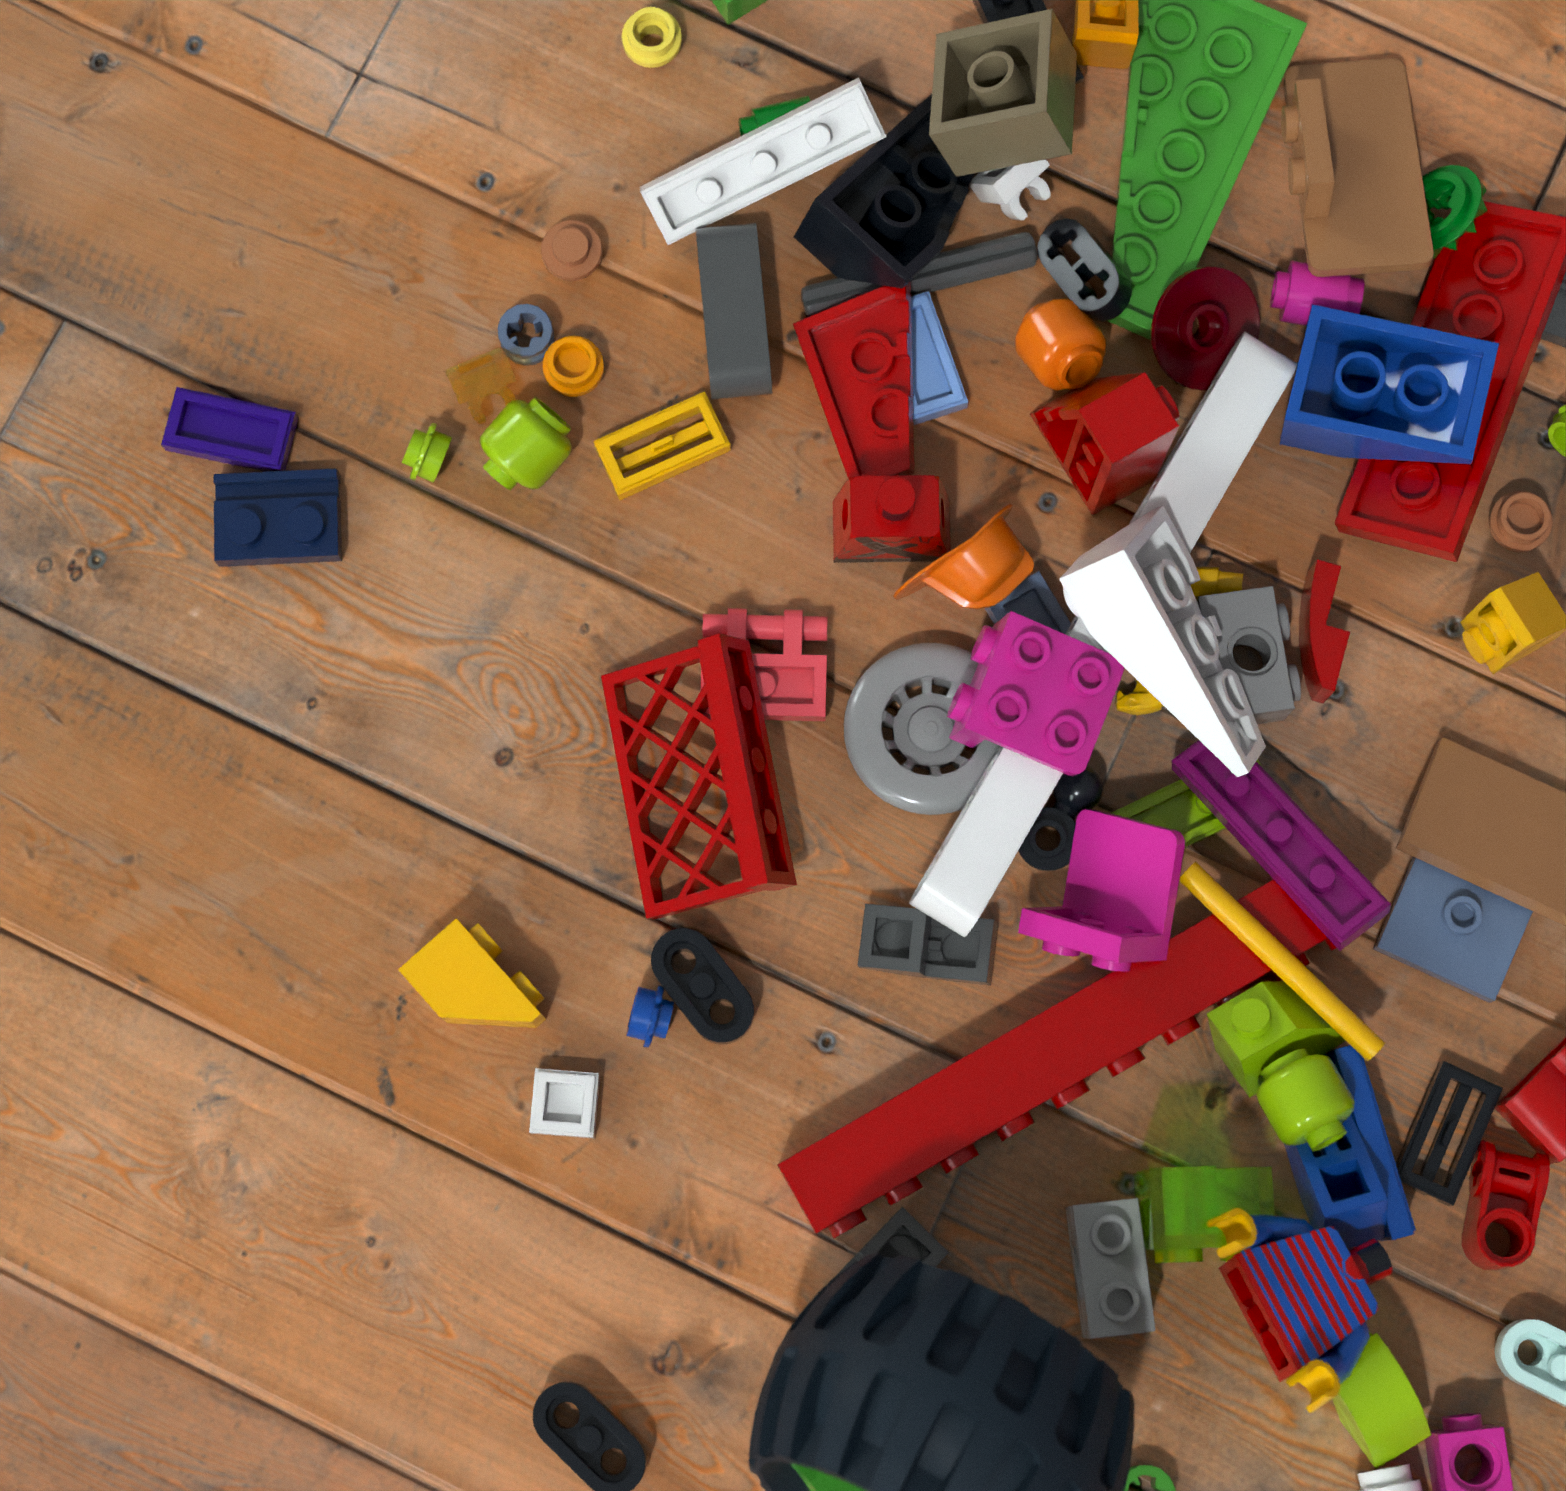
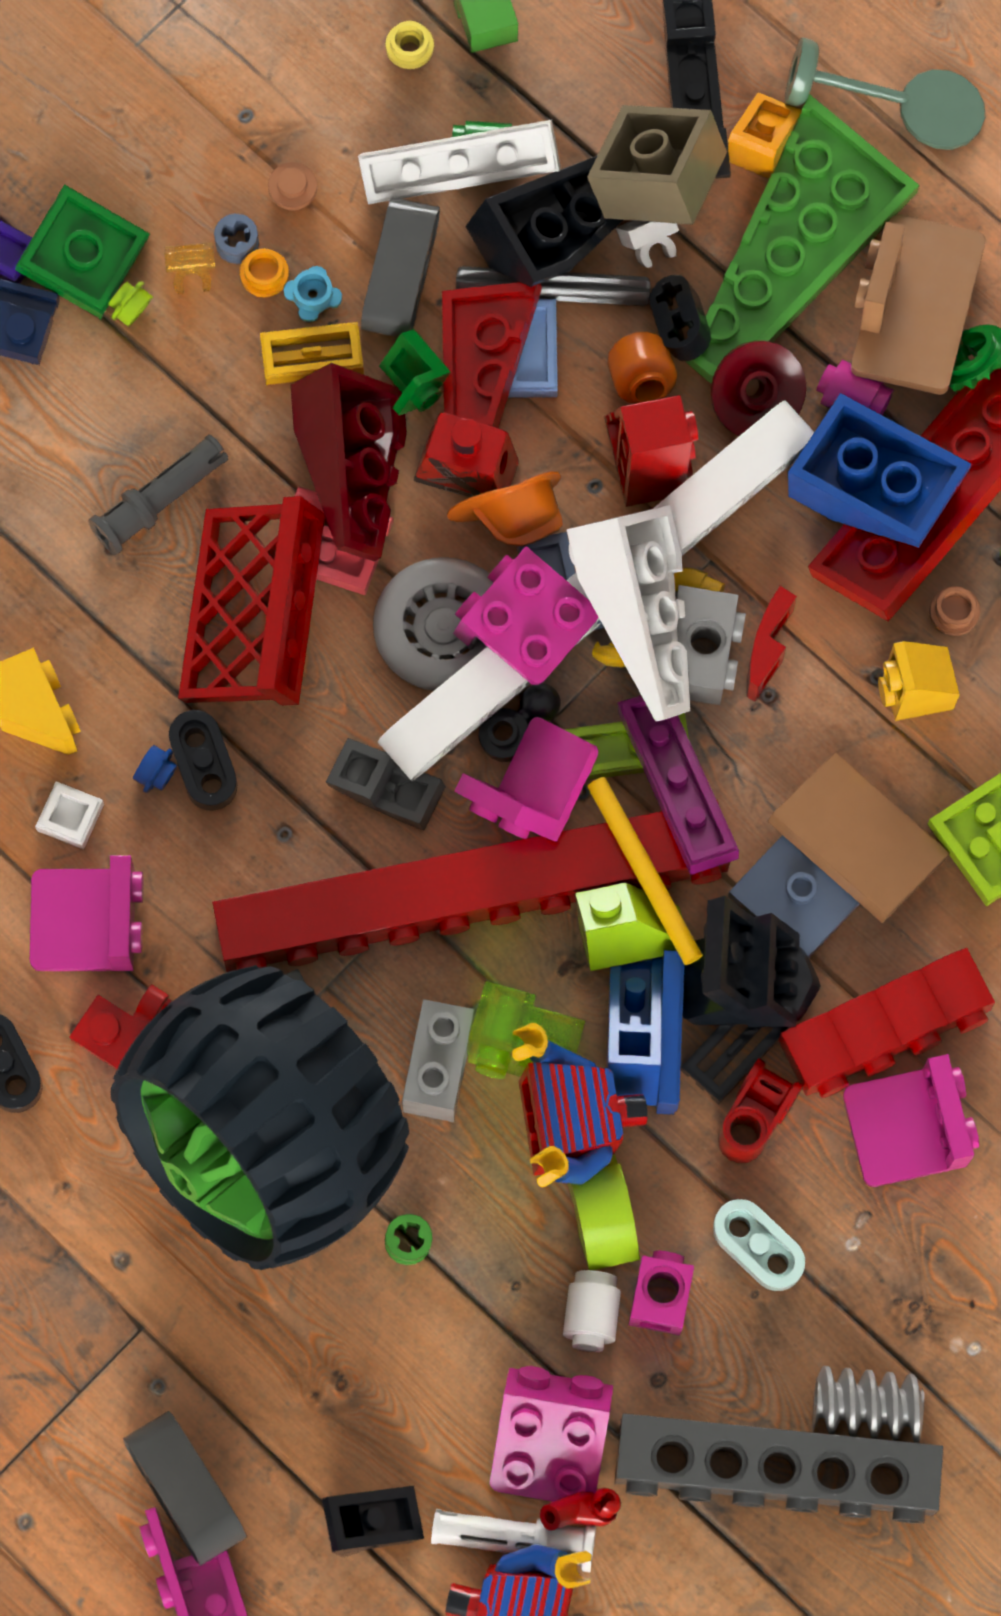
camera: 15 degrees right, 5 degrees down
(348, 408) = (82, 251): none -> green tile
(524, 698) = (140, 507): none -> dark grey pin
(525, 444) = (207, 318): lime head -> none
(628, 1227) = (86, 918): none -> dark pink bracket
(639, 356) = (312, 280): none -> medium azure plate
(718, 1359) = (110, 1031): none -> red plate
(744, 538) = (350, 452): none -> dark red wedge
(794, 432) = (415, 372): none -> green bracket
(1305, 1099) = (626, 976): lime head -> none
(1443, 1045) = (748, 971): none -> black piece

